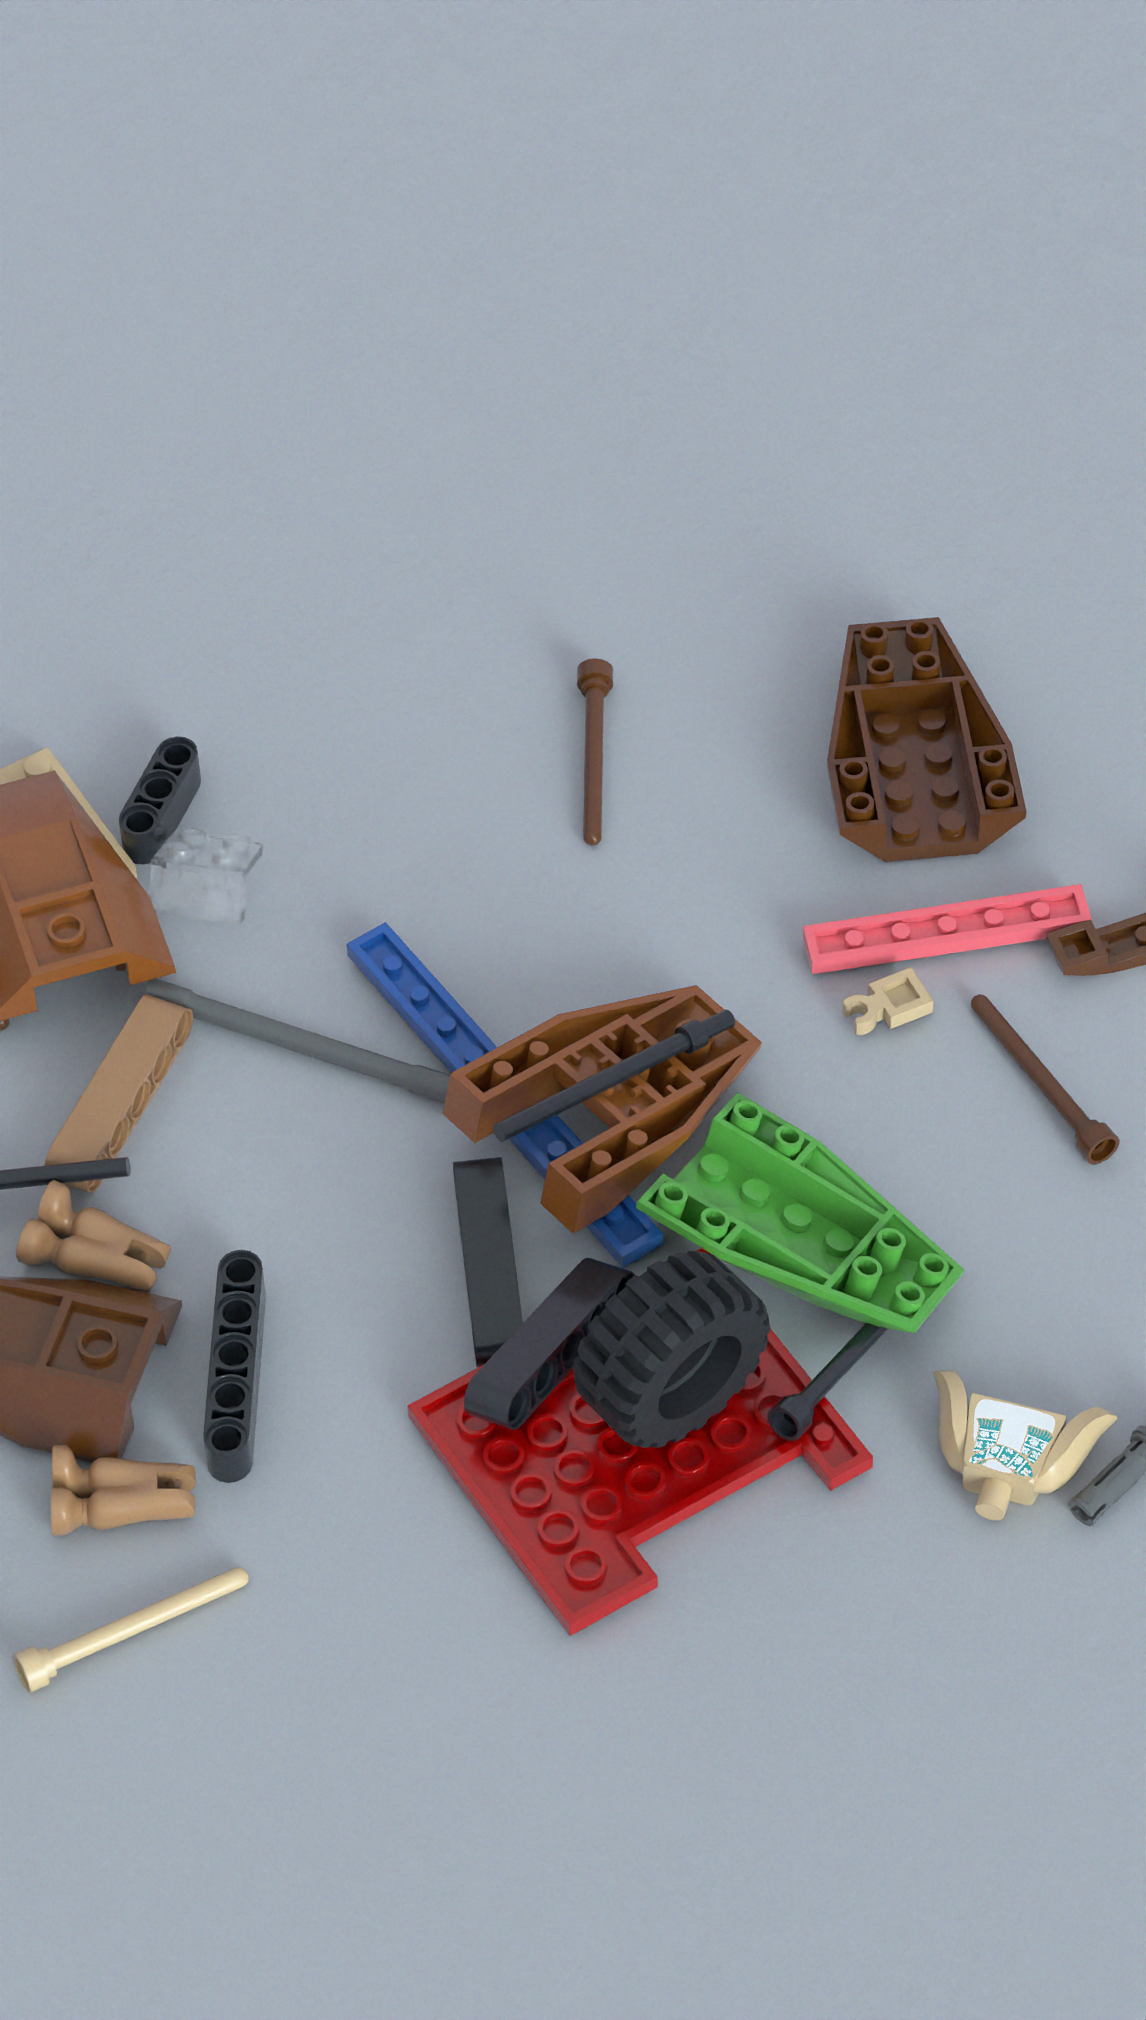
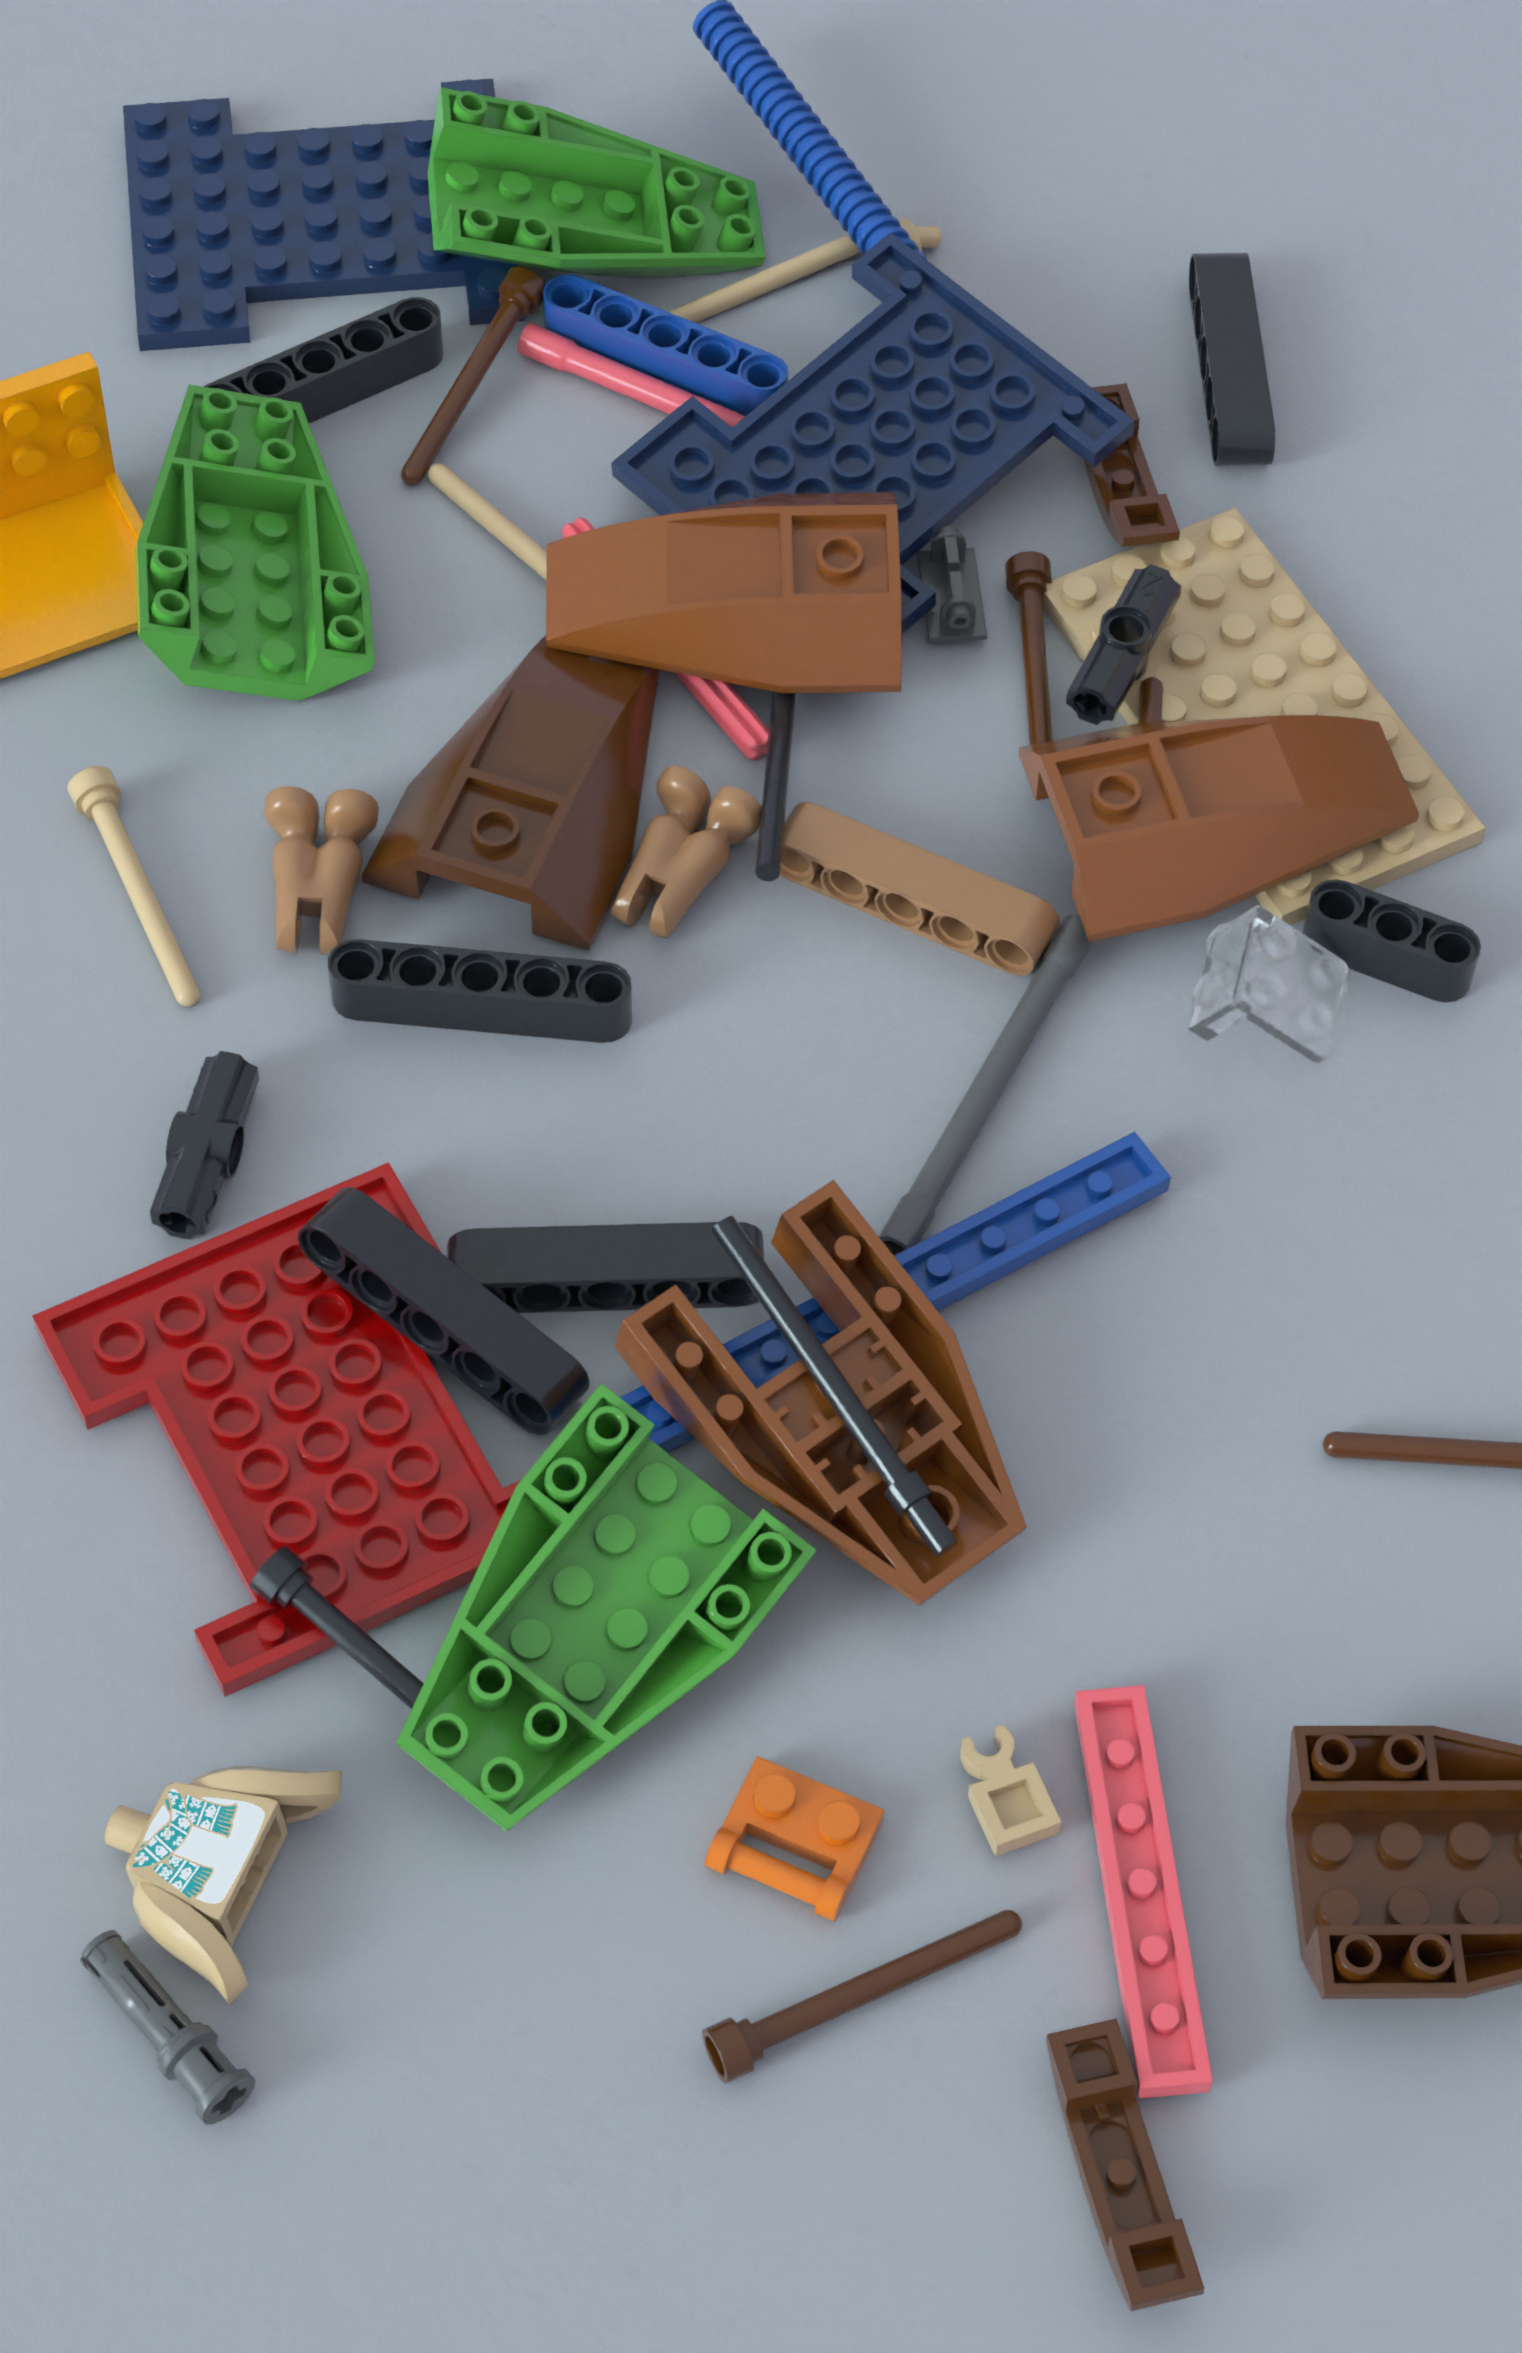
camera: 90 degrees right, 5 degrees up
(394, 1535) = (204, 1145): none -> black piece
(671, 1349) = (338, 1392): black tyre -> none
(922, 1114) = (803, 1820): none -> orange plate

